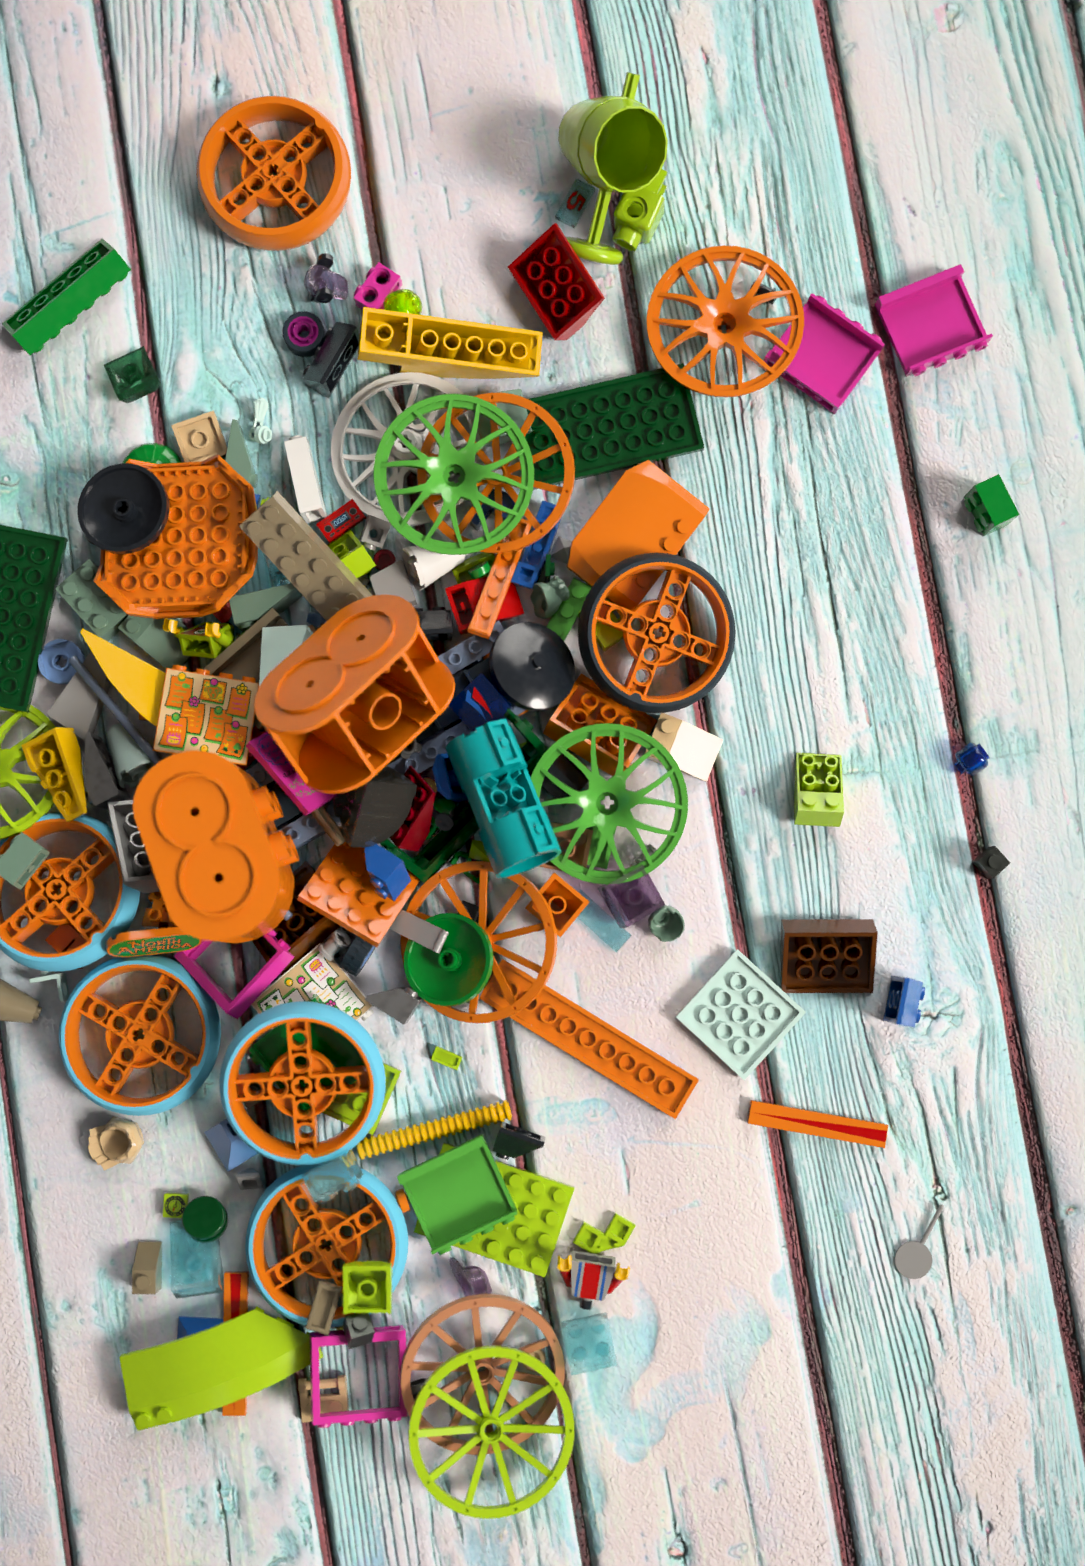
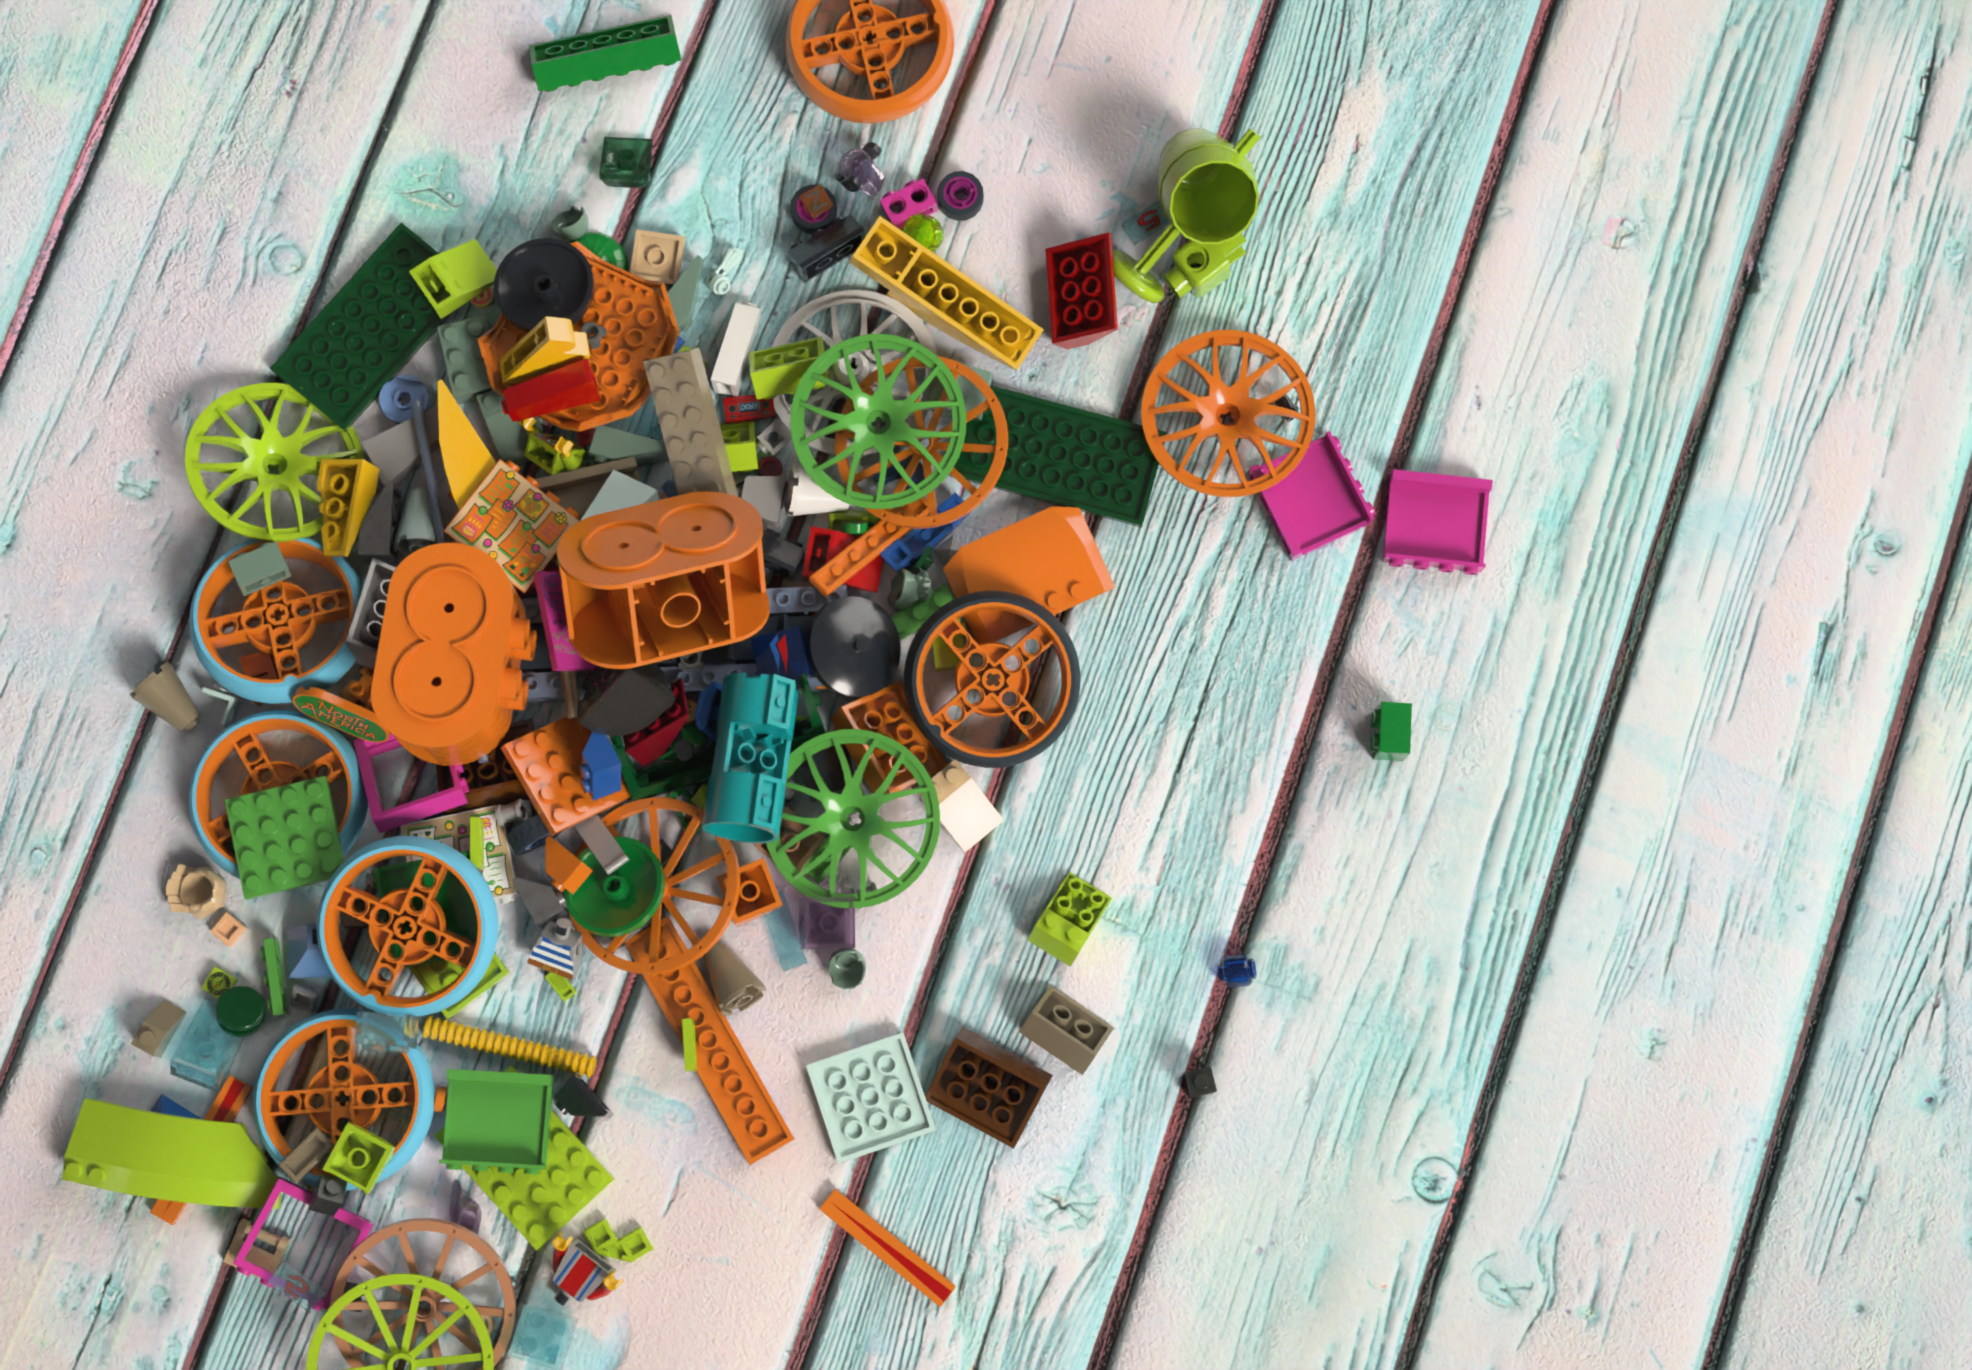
camera: 20 degrees right, 5 degrees down
(46, 541) = (454, 276): none -> lime slope
(76, 545) = (484, 299): none -> tile
(116, 449) = (570, 224): none -> sand green hair
(155, 558) = (543, 350): none -> yellow brick
(158, 1158) = (228, 929): none -> light nougat tile
(163, 1064) = (285, 837): none -> bright green plate
(178, 525) = (599, 332): none -> dark grey plate
(178, 591) = (552, 392): none -> red slope
(217, 1177) = (274, 977): none -> bright green plate
(303, 325) = (816, 201): none -> clear orange tile
(319, 984) = (477, 842): none -> lime tile
(352, 472) = (782, 367): none -> lime slope
(373, 1413) = (296, 1286): none -> clear light blue tile
(399, 965) = (564, 867): none -> orange slope
(410, 250) = (960, 182): none -> wheel
(430, 1032) = (558, 949): none -> torso
(577, 1052) = (689, 1044): none -> lime tile
(581, 982) = (732, 980): none -> dark tan cone
(864, 878) = (1066, 1030): none -> dark tan slope
(904, 1001) = (1038, 1172): blue slope -> none

